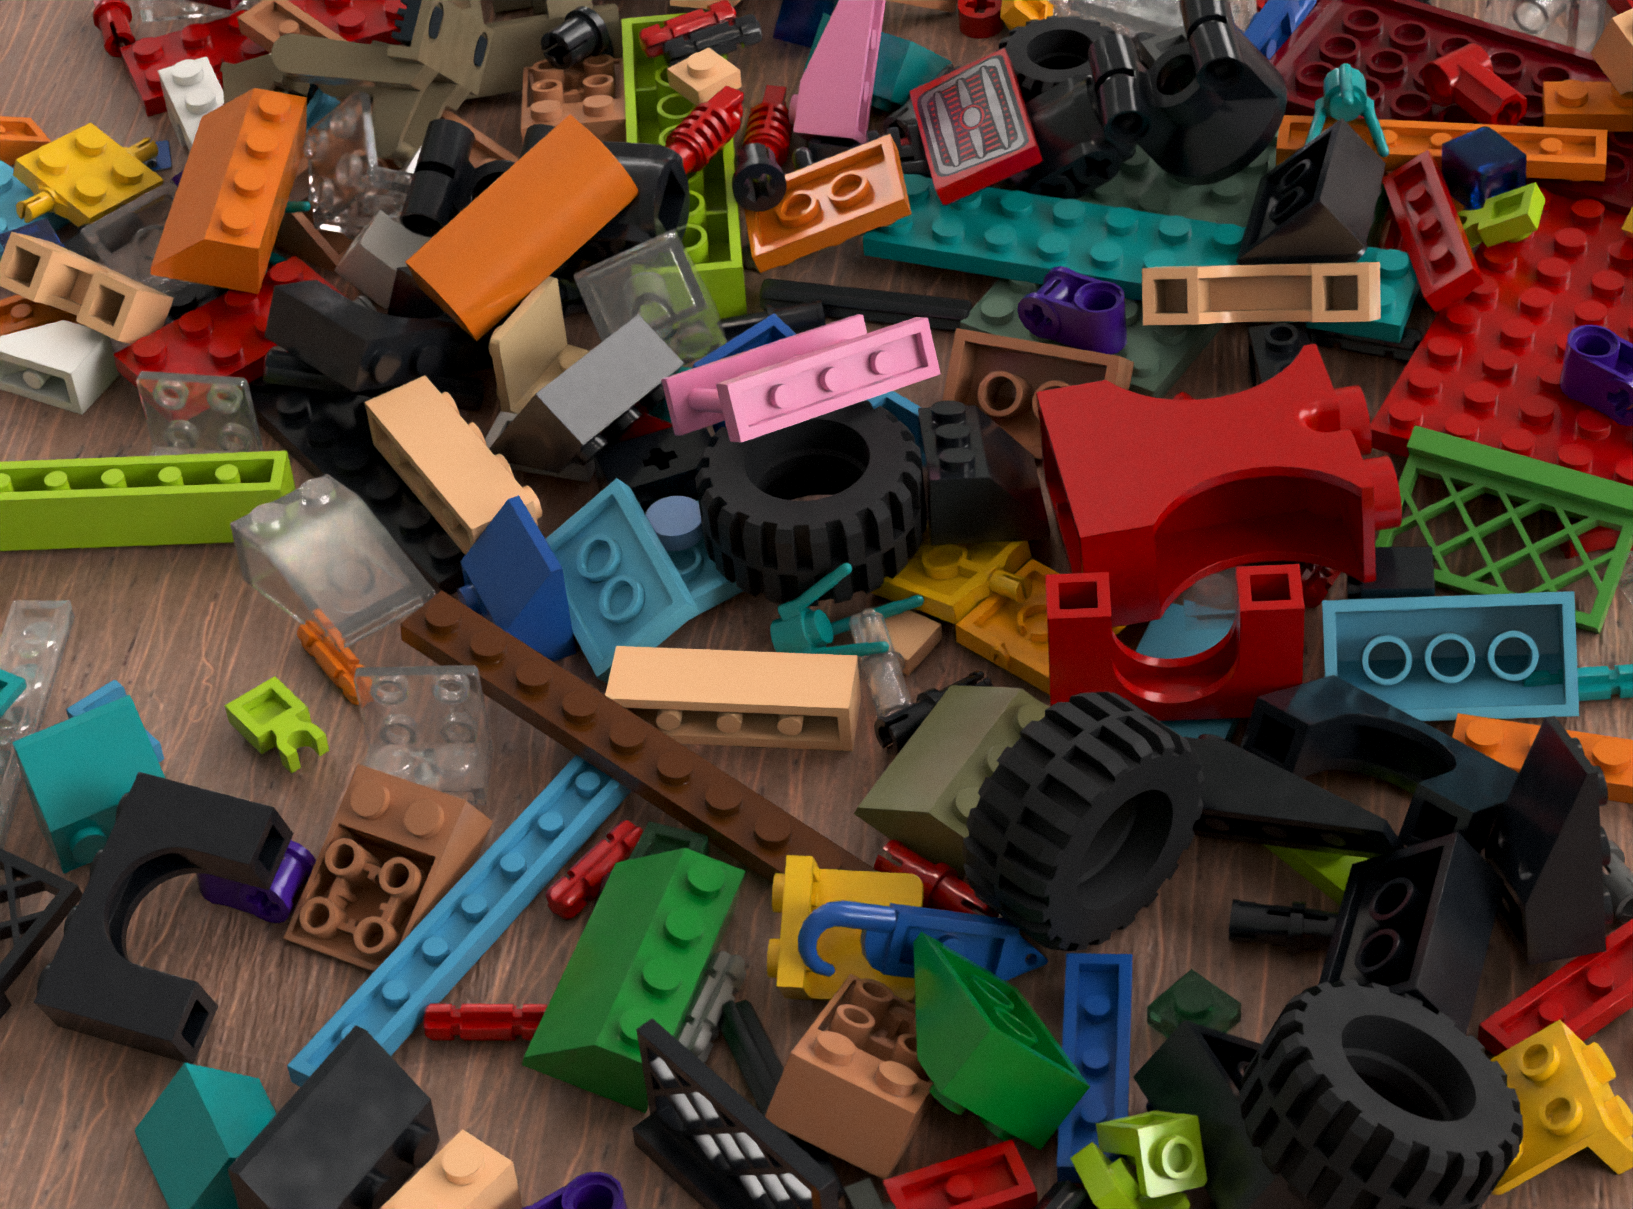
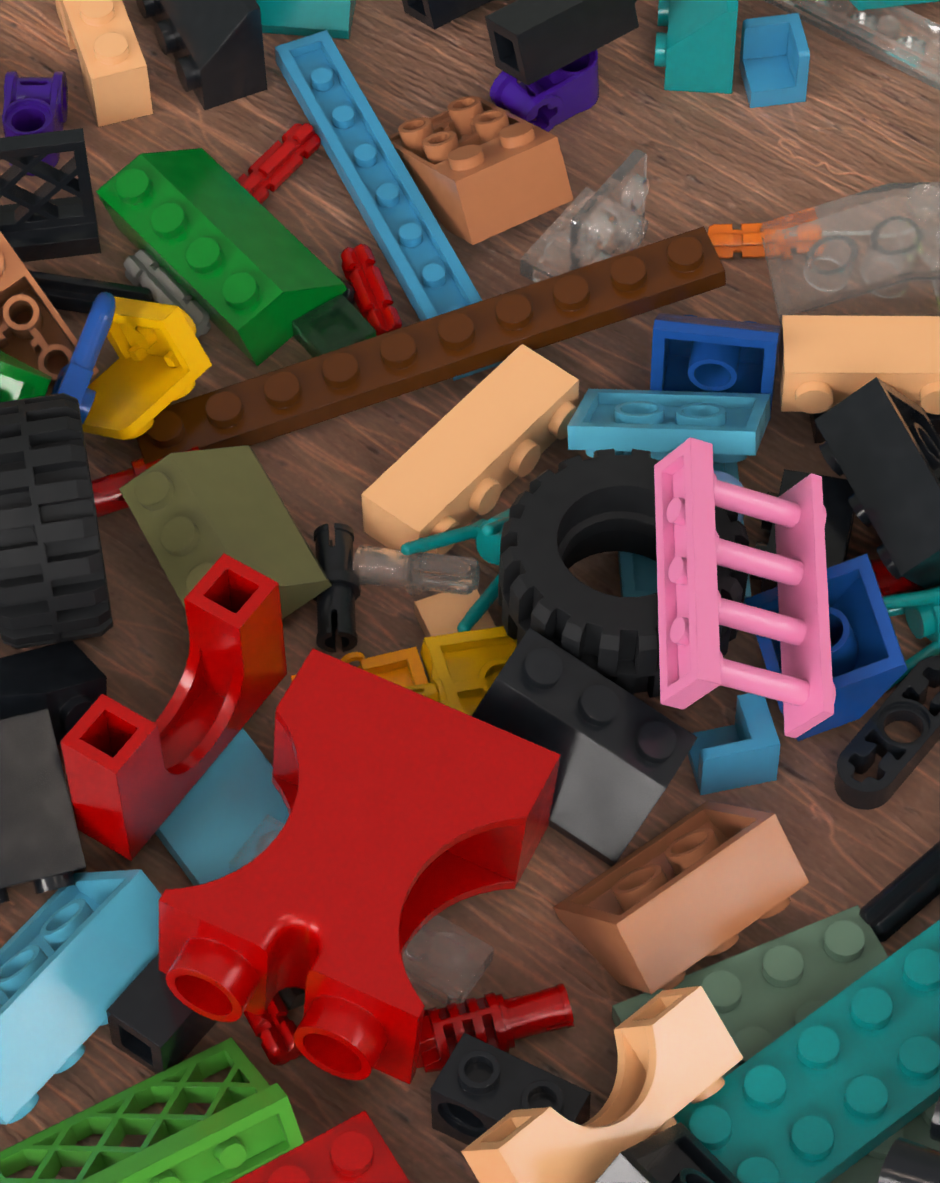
camera: 120 degrees right, 10 degrees up
(276, 718) = (715, 165): lime plate -> none
(1081, 311) = (760, 960): dark purple piece -> none

